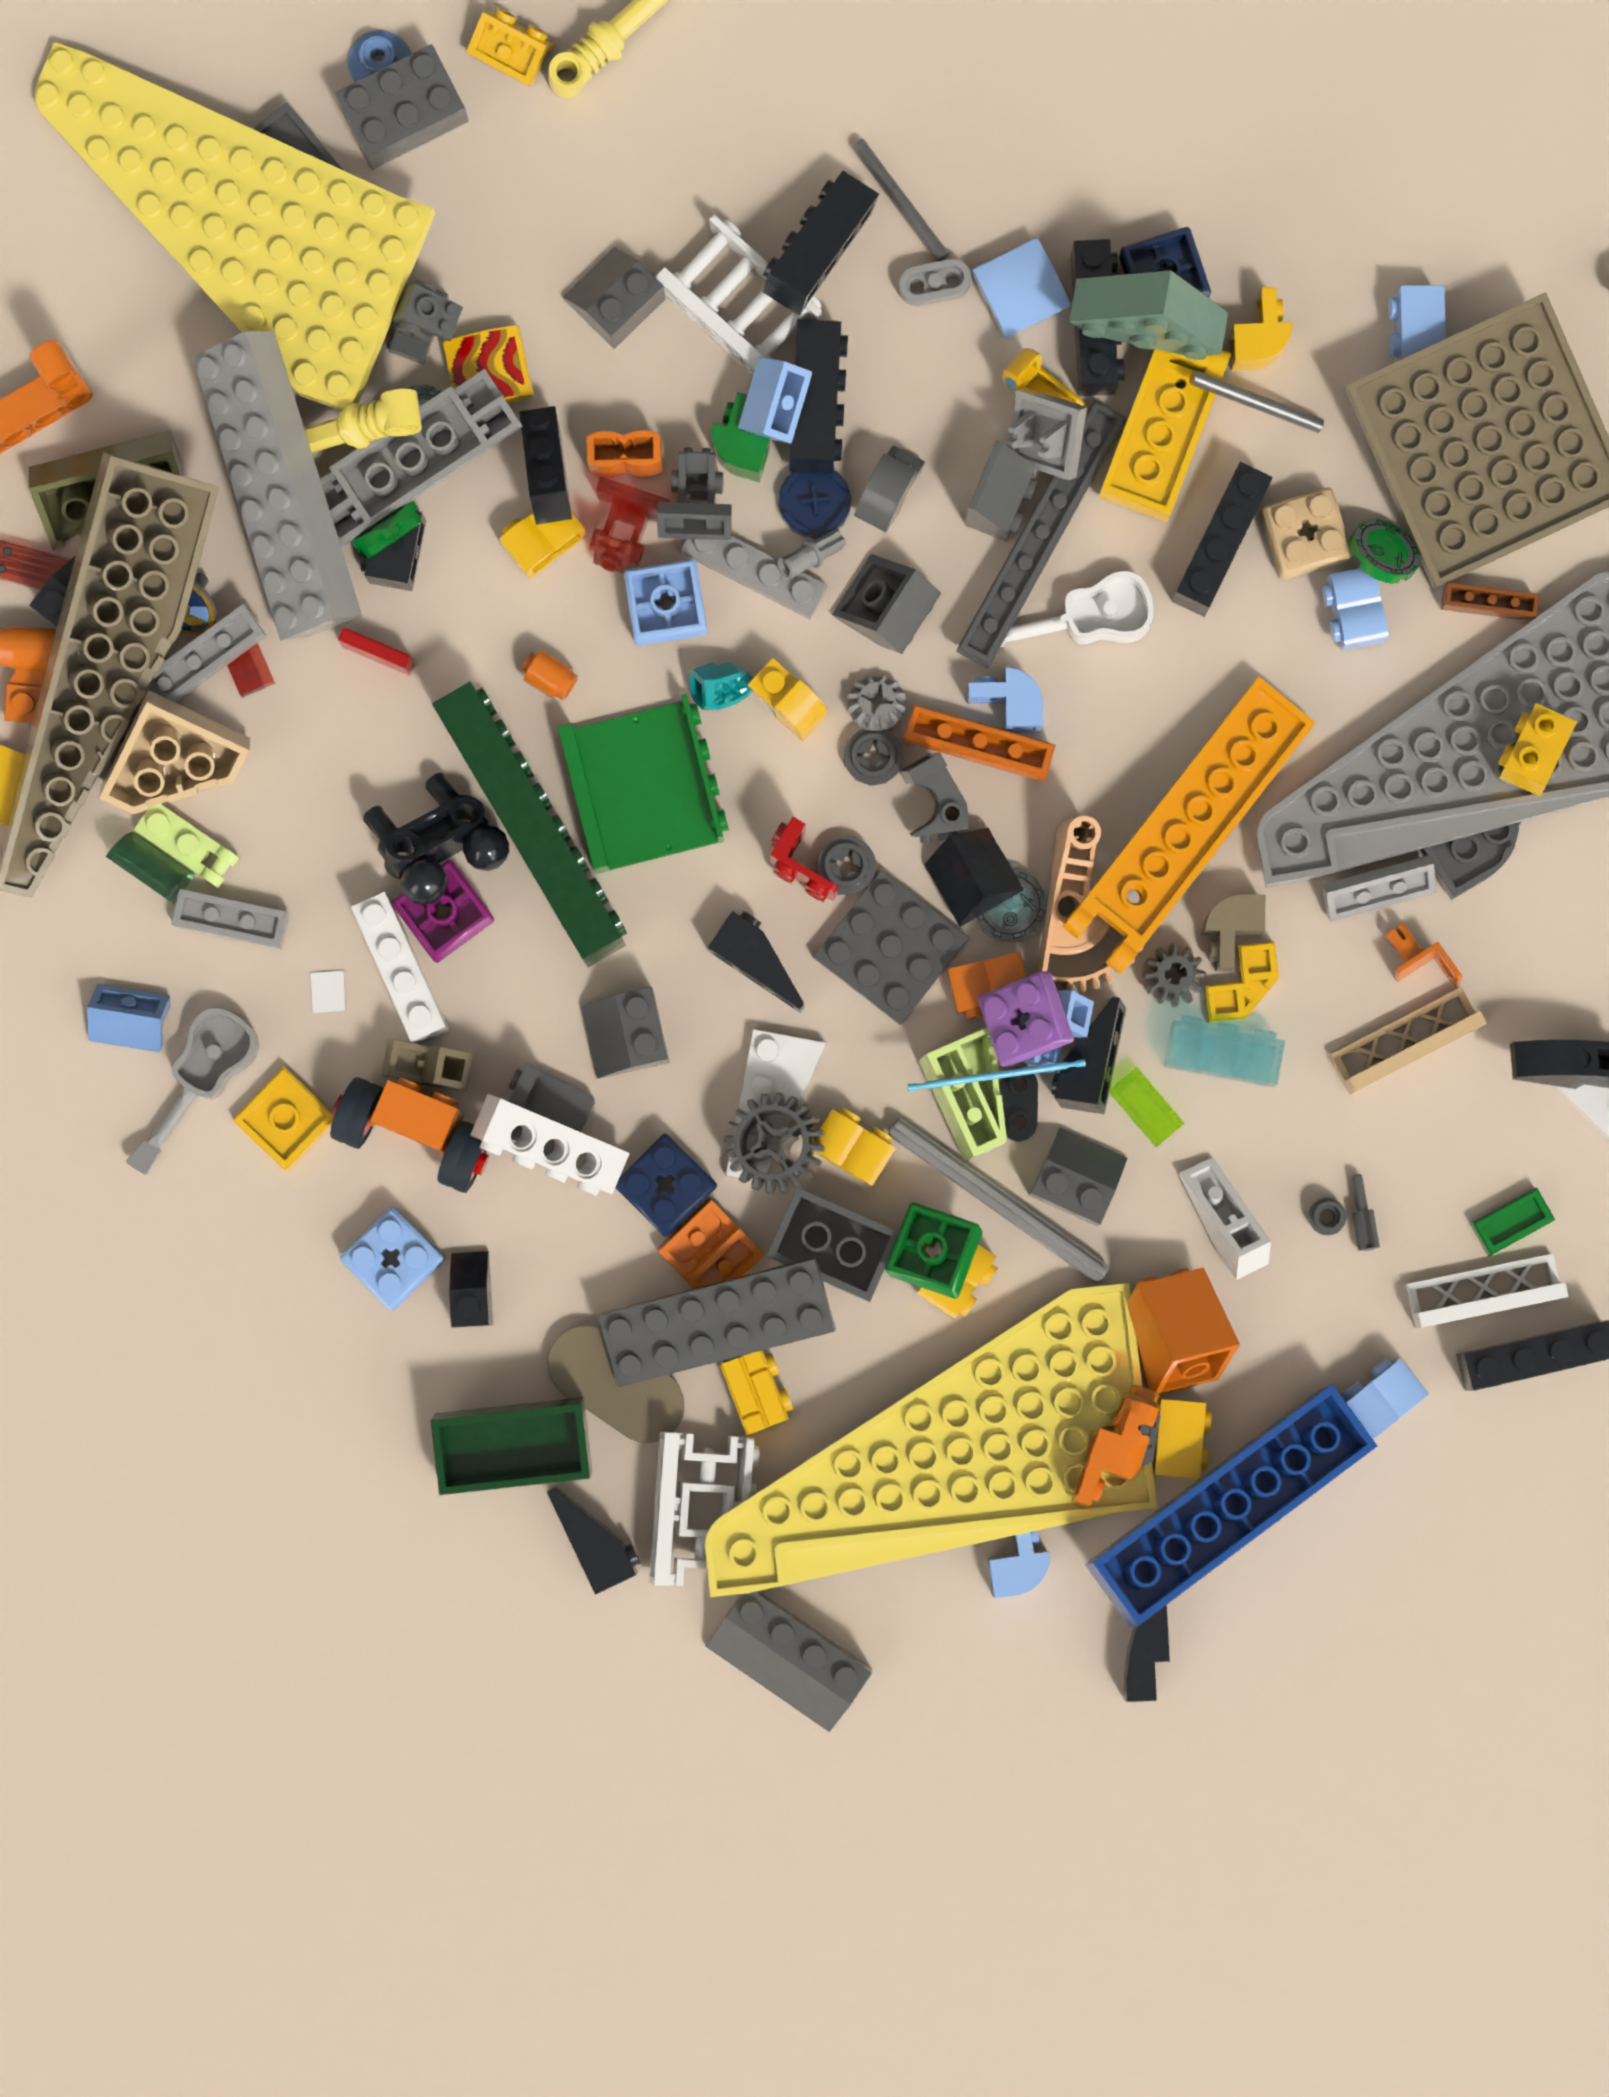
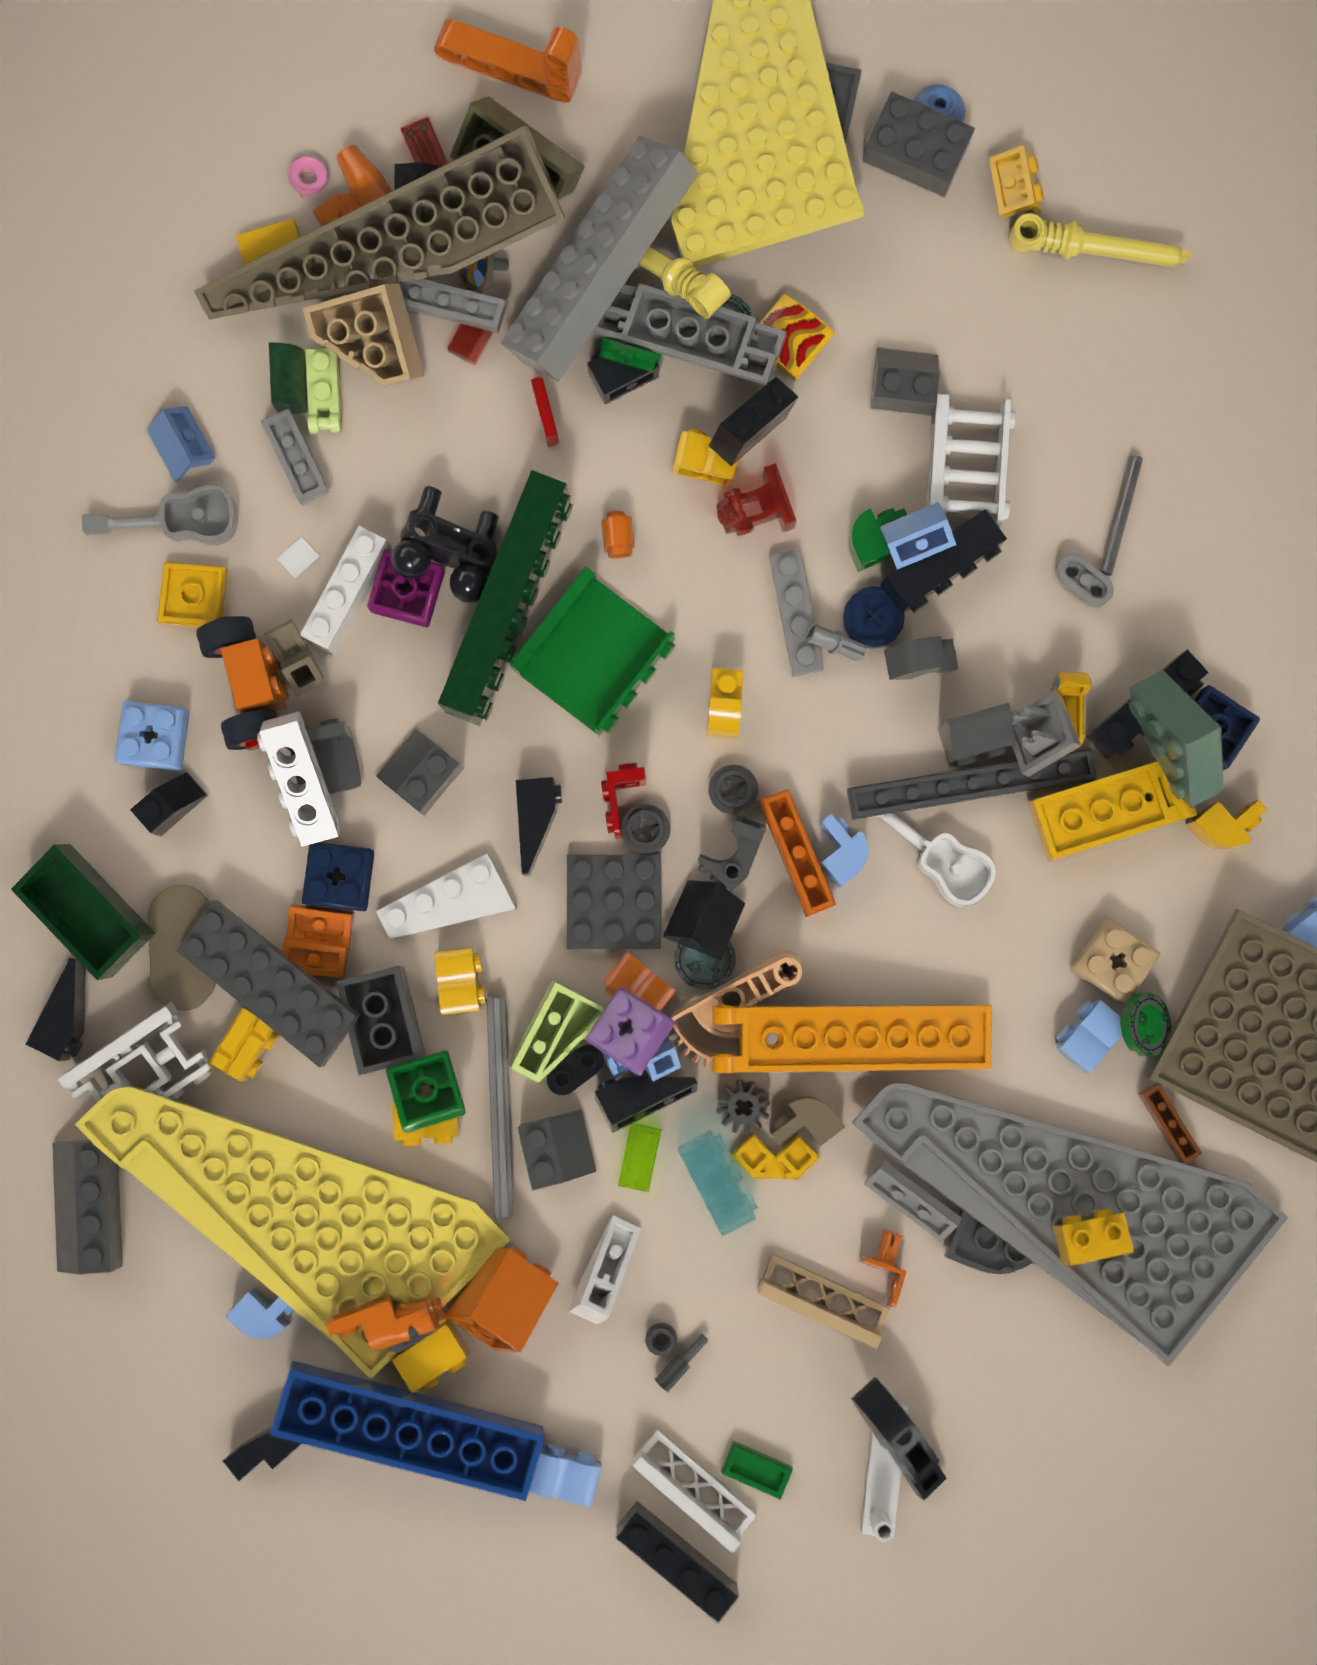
camera: 50 degrees right, 0 degrees up
(421, 311) = (786, 266): dark grey tile -> none
(634, 453) = (797, 462): orange brick -> none
(644, 591) = (723, 553): light blue brick -> none
(695, 481) = (823, 526): dark grey tile -> none
(718, 685) = (698, 650): teal rock -> none
(760, 1150) = (421, 914): dark grey gear -> none
(820, 242) = (1048, 482): black brick -> none
(887, 603) = (842, 718): dark grey slope -> none
(887, 714) = (767, 776): light grey gear -> none
(996, 1075) = (577, 1040): medium azure piece -> none
(1021, 287) = (1127, 640): light blue slope -> none
(1222, 539) = (1066, 907): black brick -> none
(1256, 401) = (1178, 857): flat silver bar -> none

